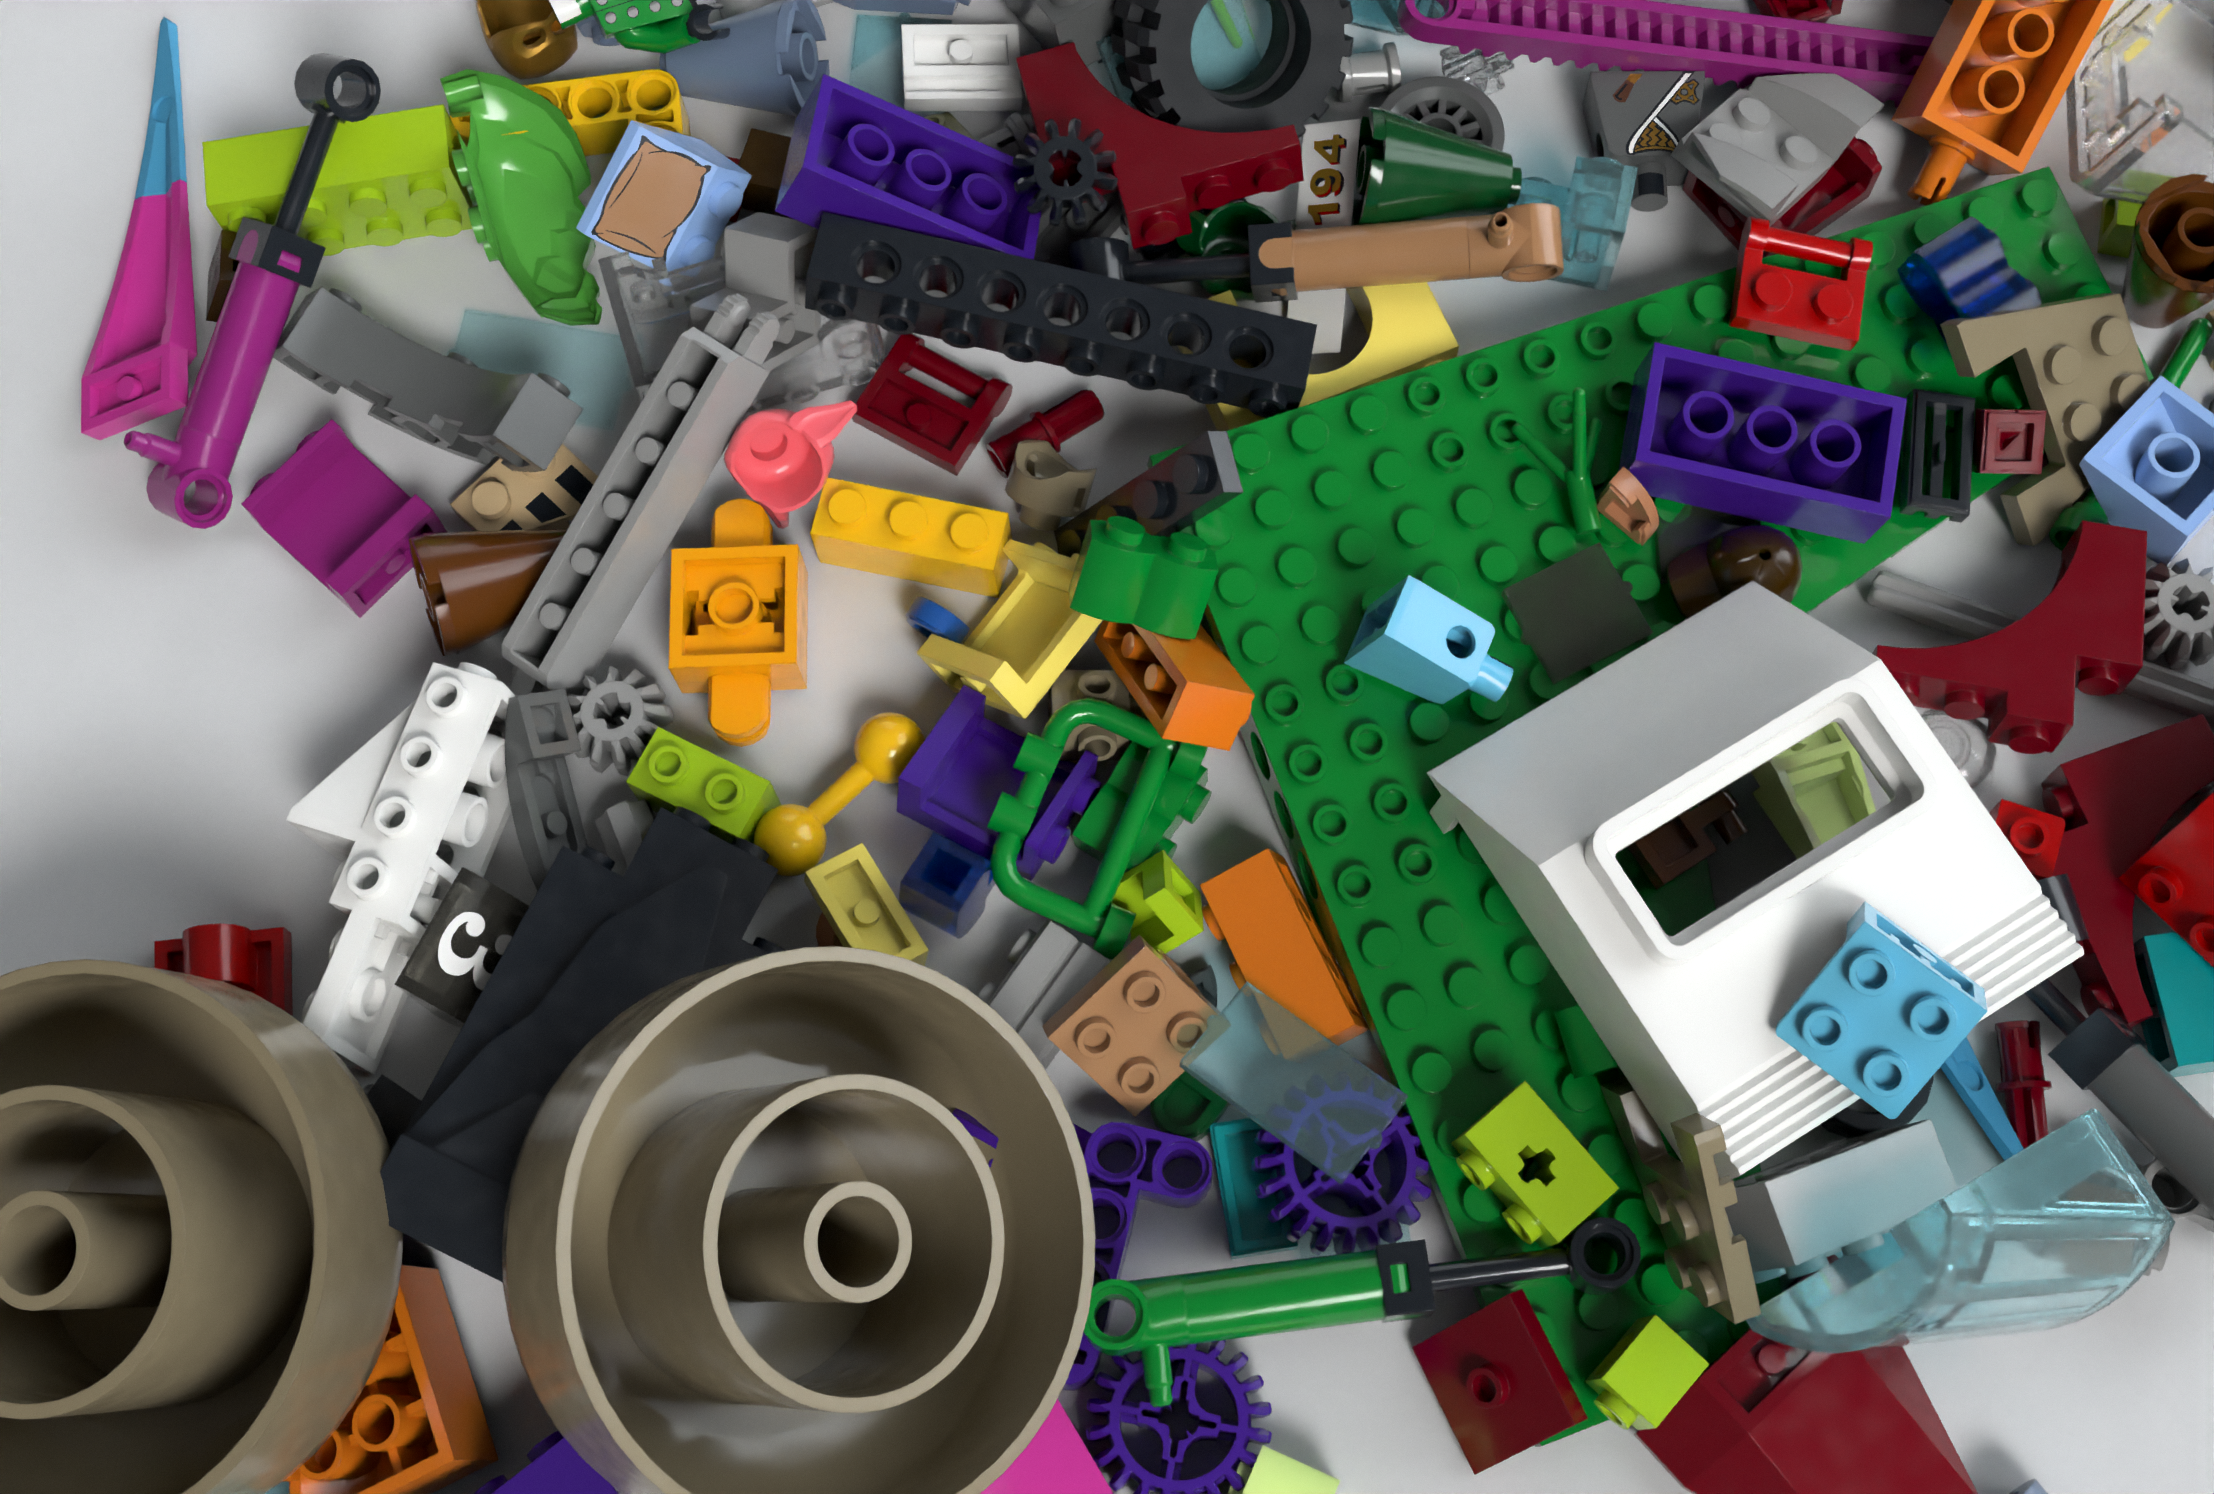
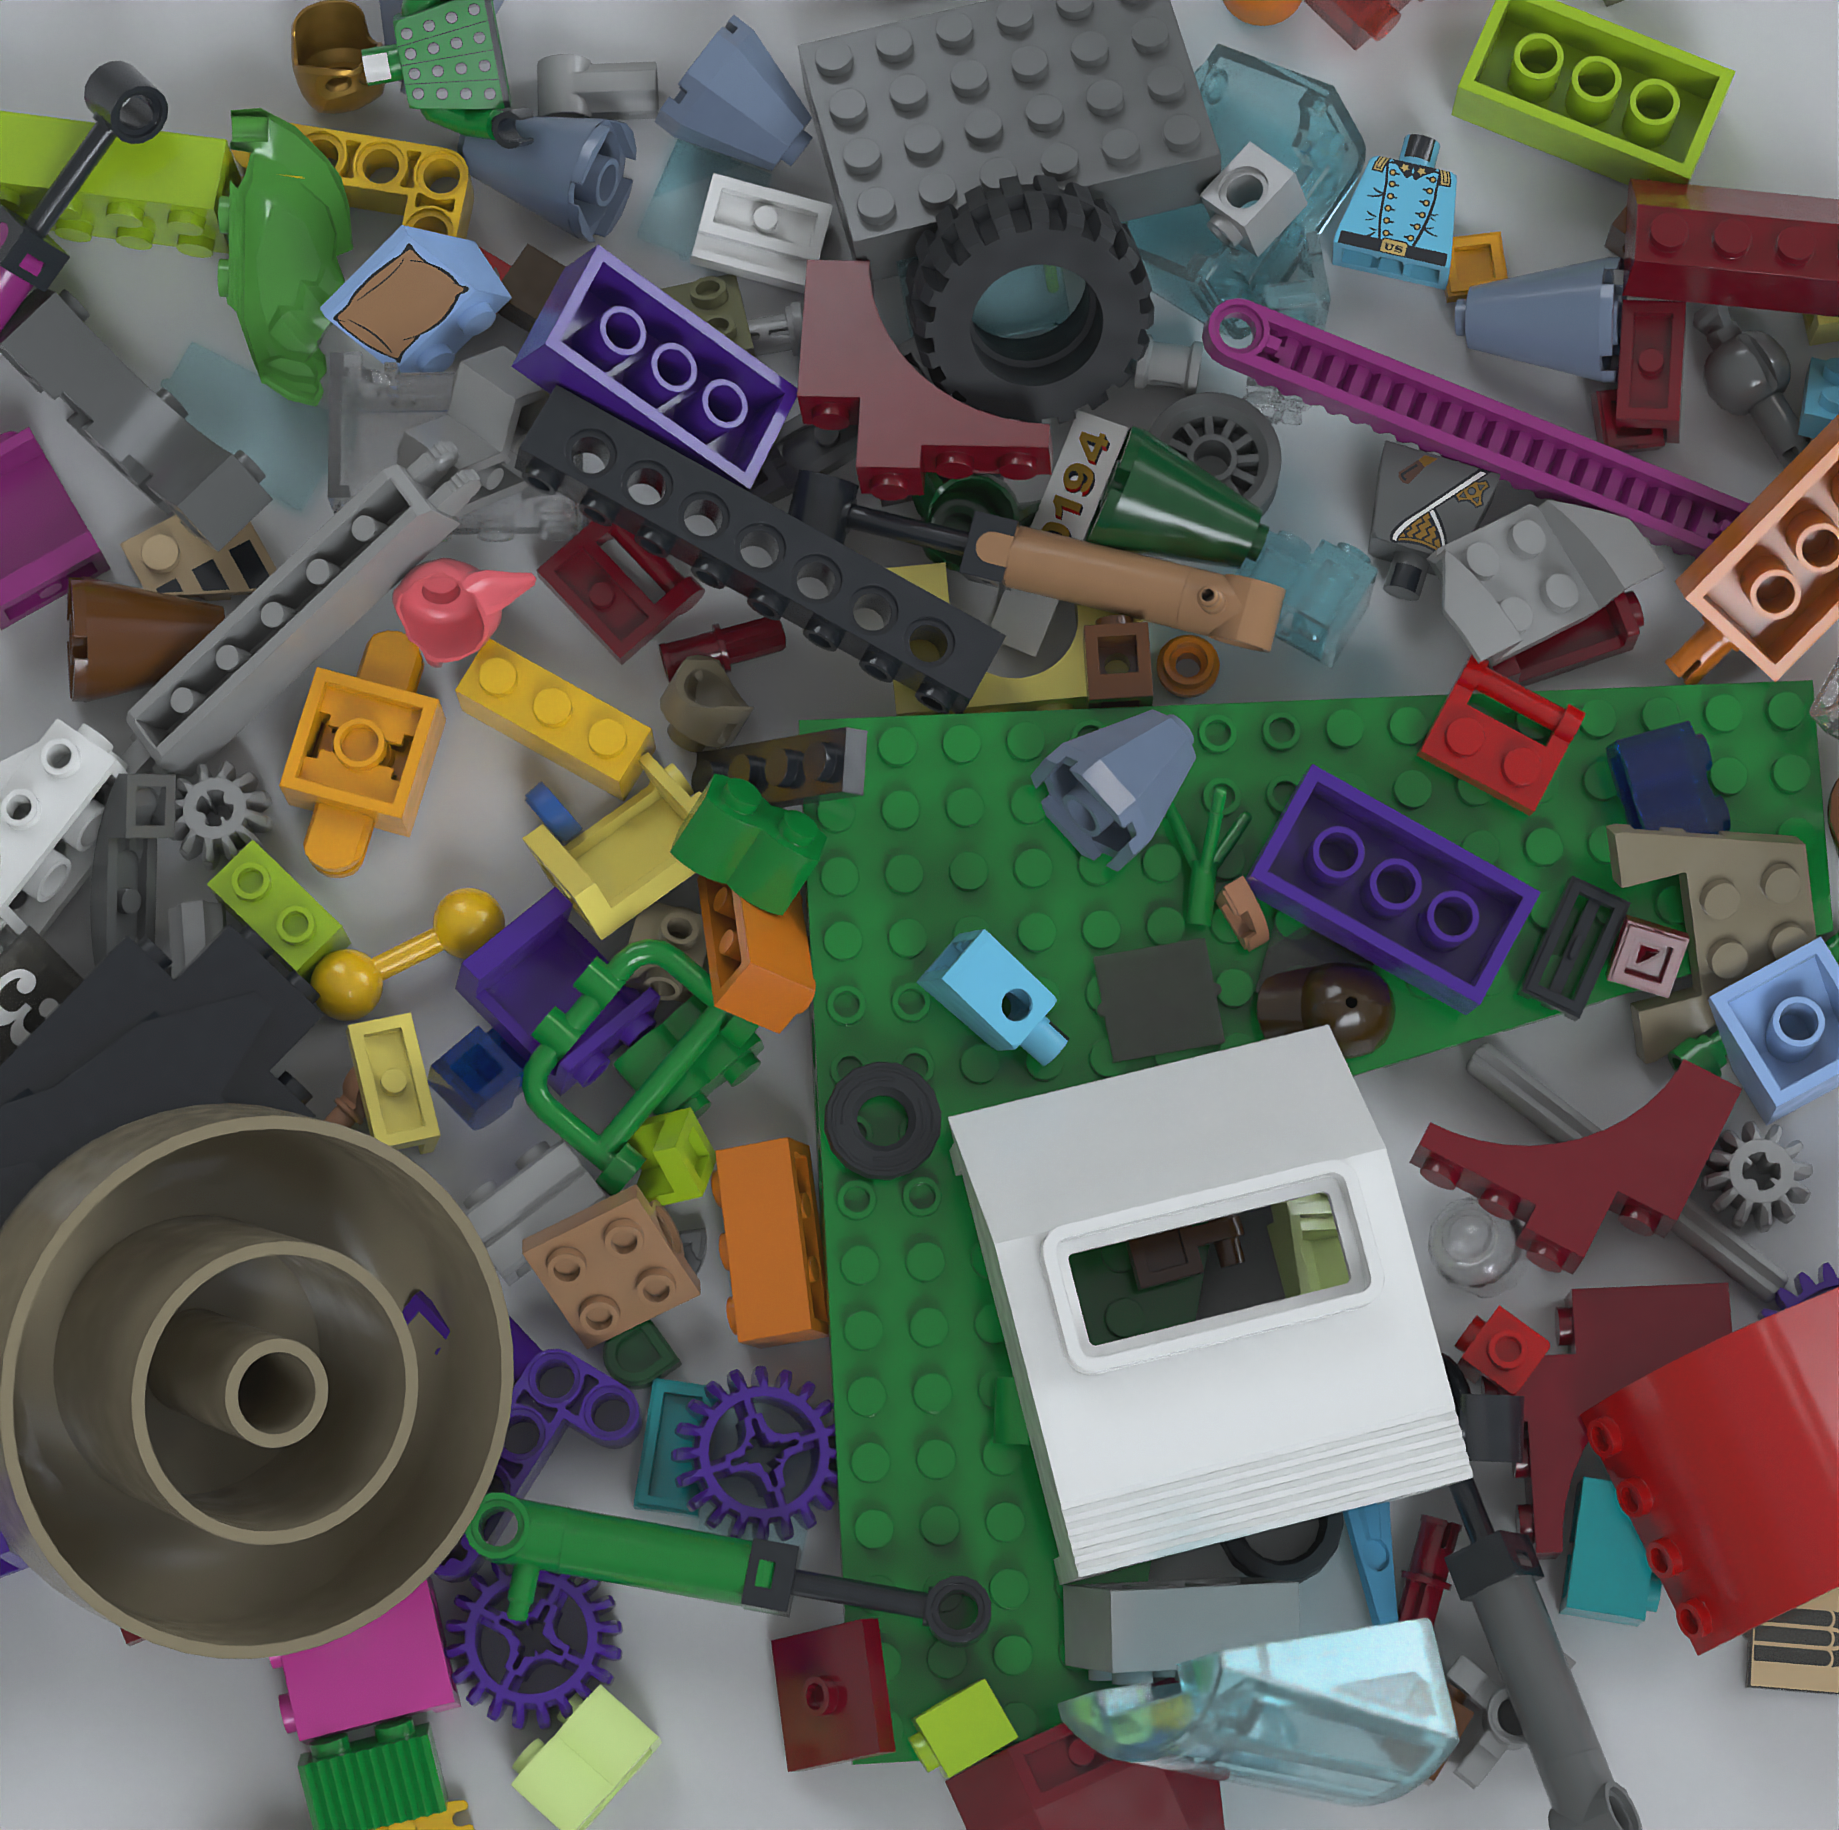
camera: 15 degrees right, 5 degrees up
(1086, 172) = (828, 415): black gear -> none
(1294, 1082) = (735, 1364): clear light blue piece -> none
(1369, 762) = (871, 1159): none -> black tyre
(1430, 306) = (1123, 640): none -> reddish brown brick
(1472, 423) = (1116, 784): none -> sand blue cone
(1481, 308) = (1191, 648): none -> orange plate
(1566, 1183) = (955, 1534): lime brick -> none
(1688, 1203) = (1042, 1594): dark tan wing -> none
(1883, 1013) = (1256, 1471): medium azure bracket -> none

